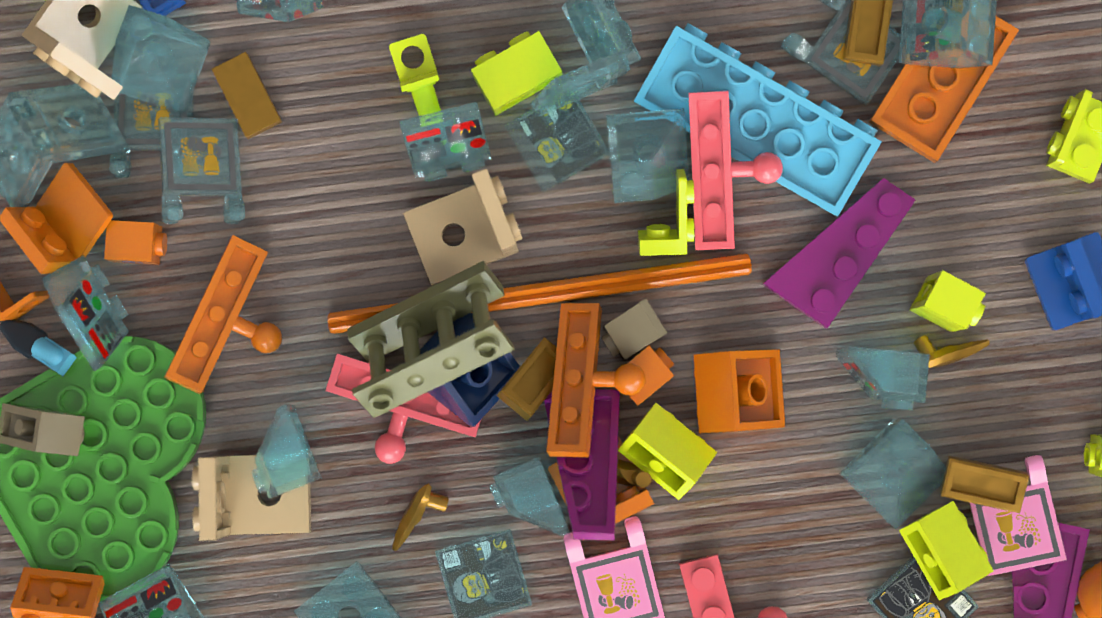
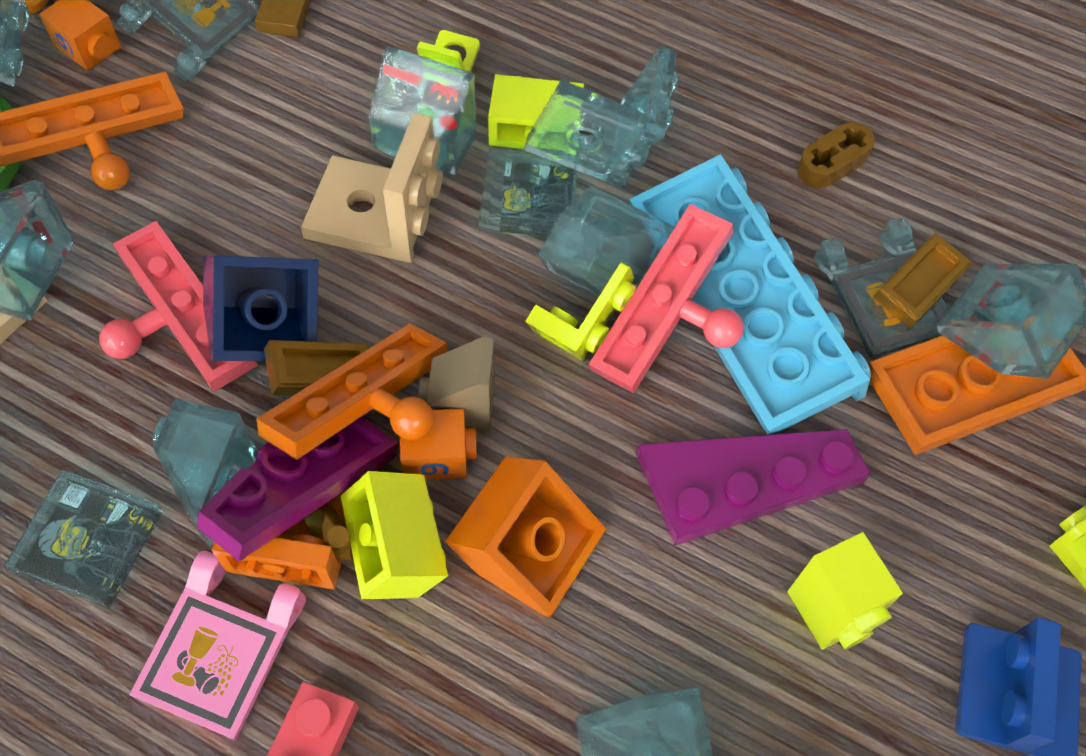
camera: 25 degrees right, 25 degrees down
(415, 510) = (98, 411): pearl gold bar -> none
(418, 316) = (240, 239): olive fence -> none
(585, 287) = (408, 309): orange axle -> none
(888, 375) = (714, 620): clear light blue slope -> none
(949, 353) = (801, 668): pearl gold bar -> none

